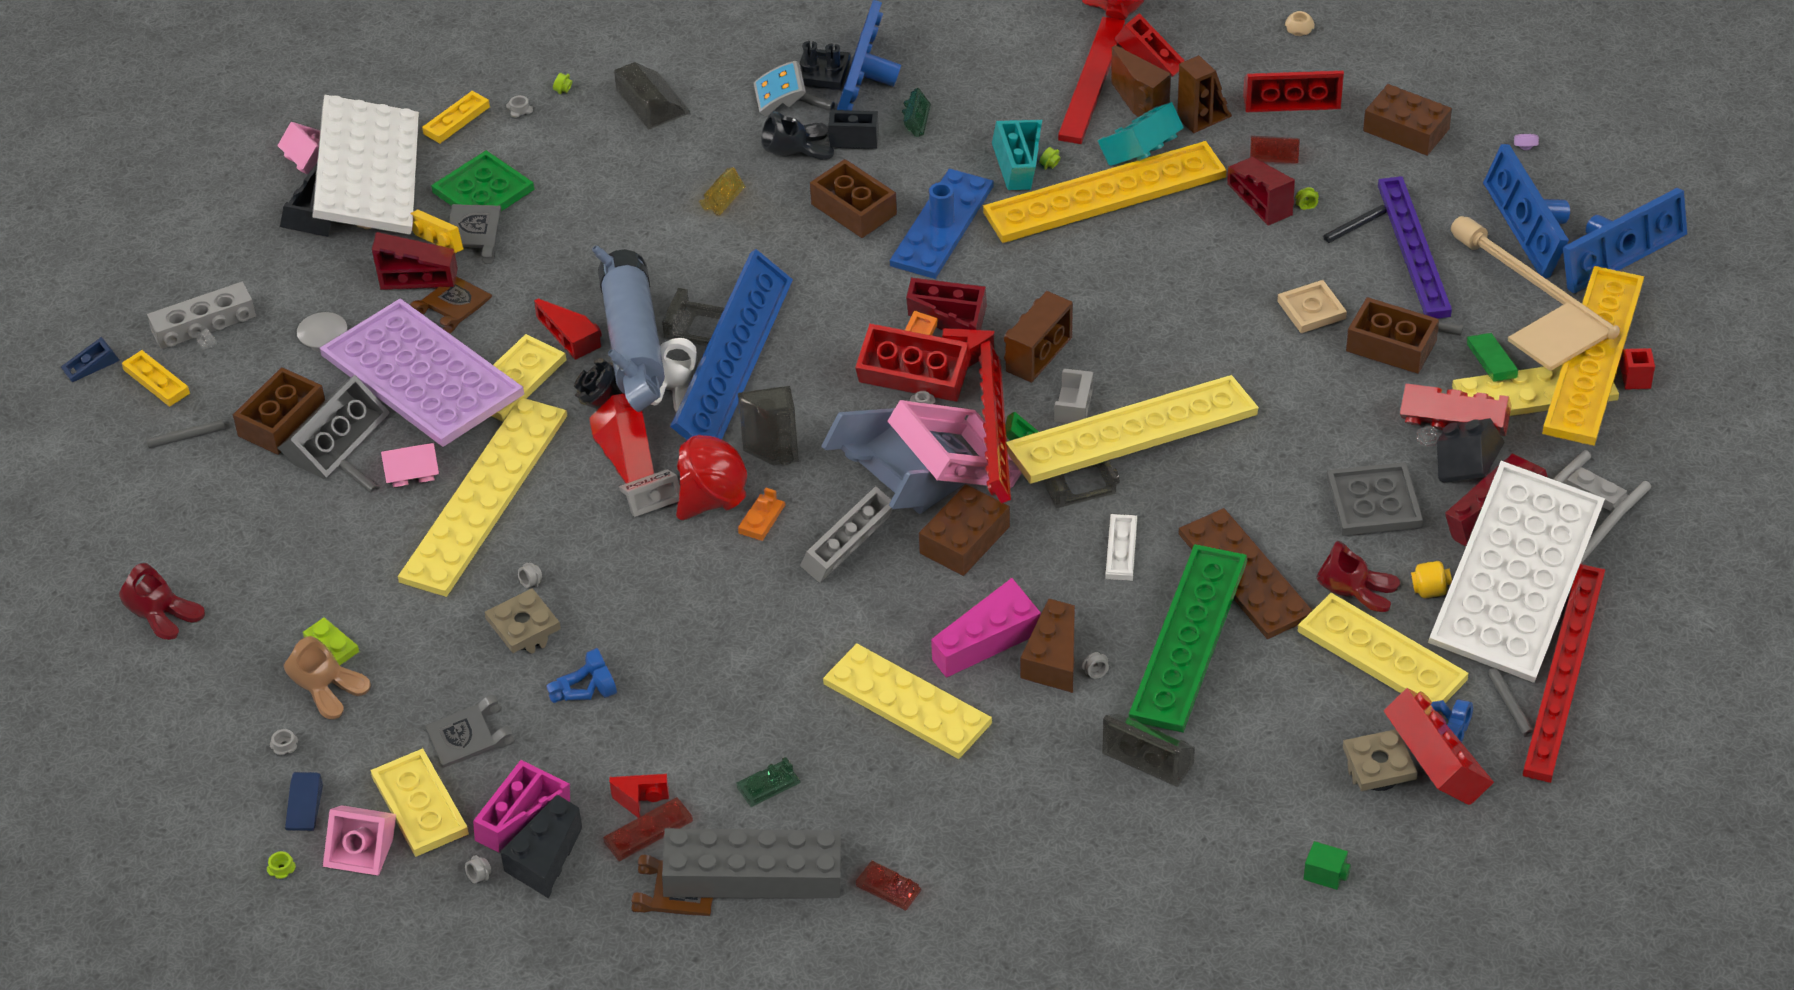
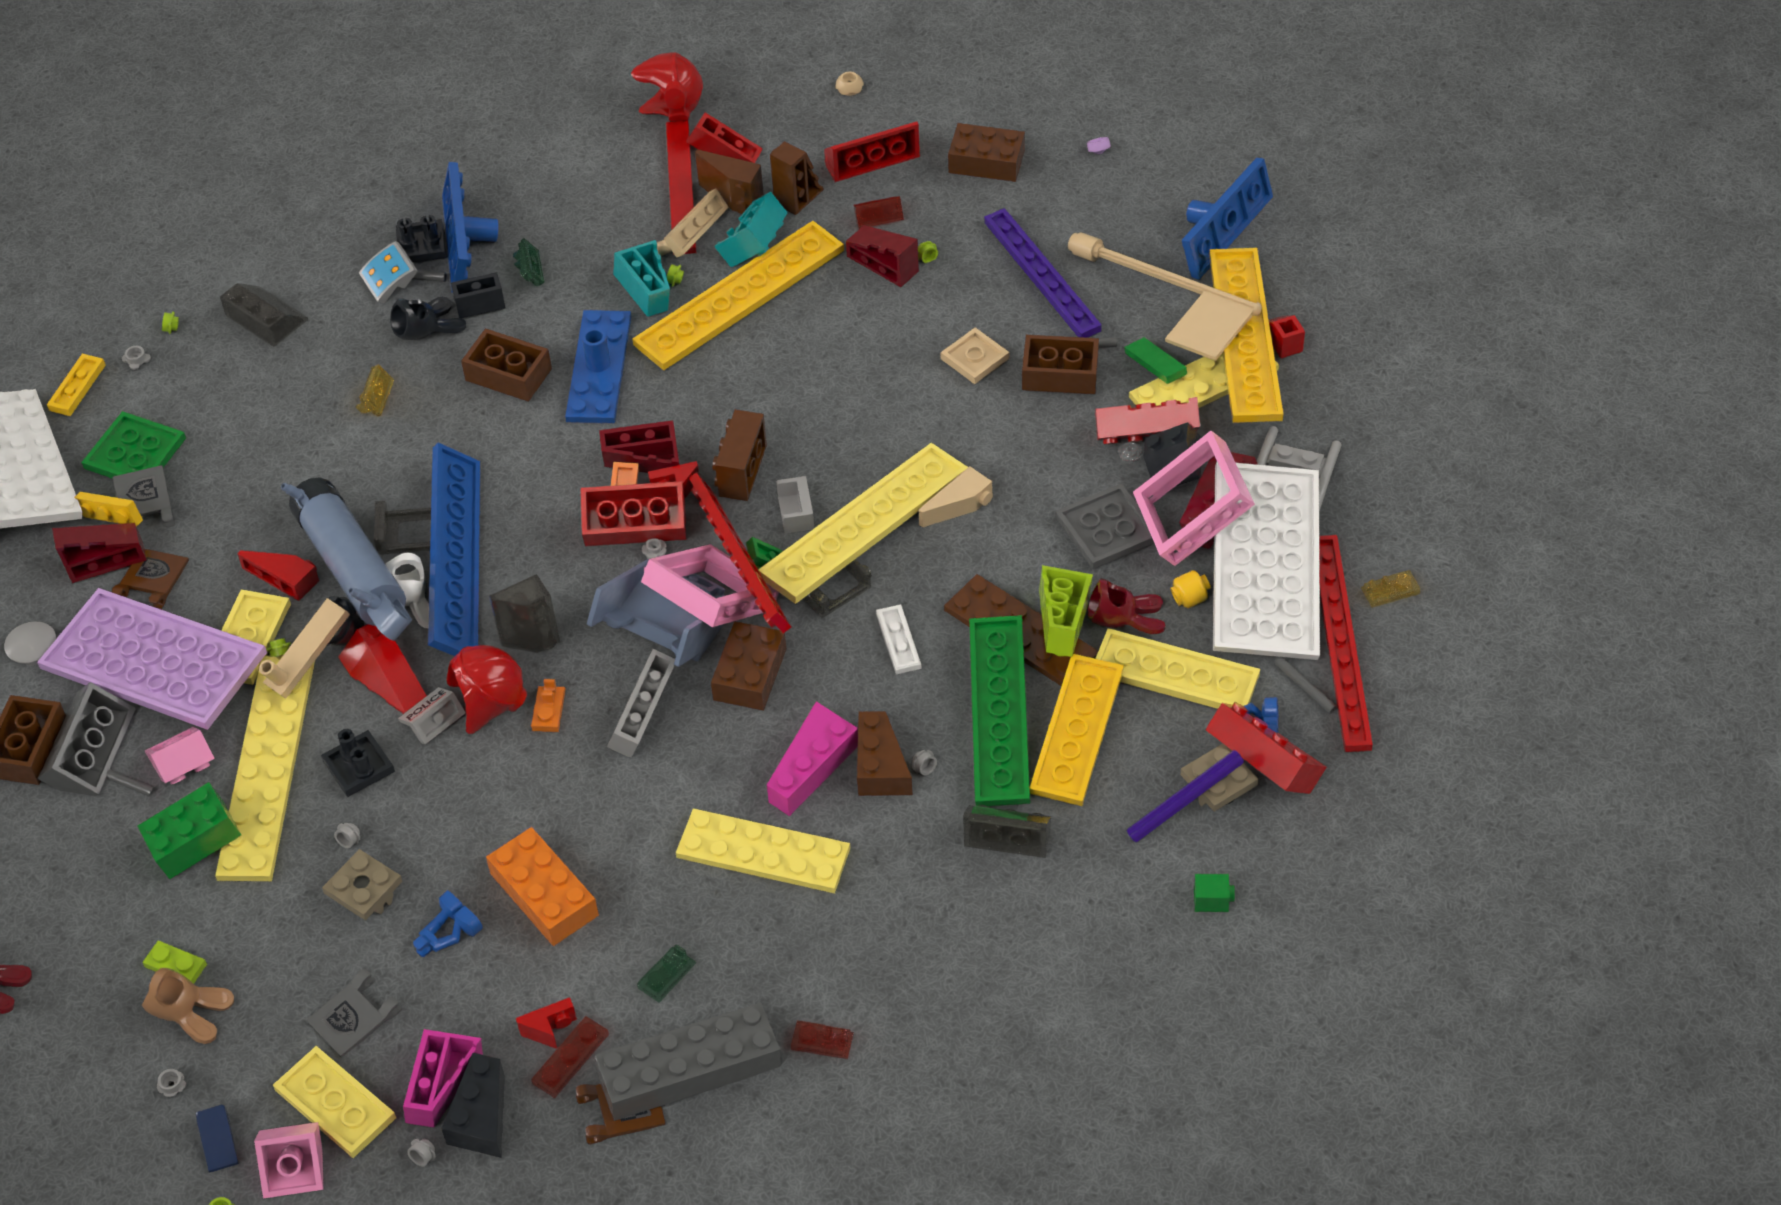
camera: 20 degrees left, 5 degrees up
(389, 529) = (189, 830): none -> green brick
(538, 394) = (278, 647): none -> lime plate
(556, 400) = (304, 650): none -> tan piece
(565, 513) = (357, 761): none -> black plate
(686, 670) = (542, 886): none -> orange brick
(1086, 116) = (693, 225): none -> tan piece
(1237, 432) = (958, 498): none -> tan slope
(1257, 676) = (1076, 730): none -> yellow plate
(1293, 560) = (1063, 607): none -> lime wedge
(1335, 766) = (1185, 796): none -> dark purple axle
(1355, 223) = (979, 264): black piece -> none
(1475, 512) = (1212, 519): none -> bright pink window
(1529, 216) = (1135, 217): blue plate -> none
(1640, 636) = (1390, 588): none -> clear yellow plate

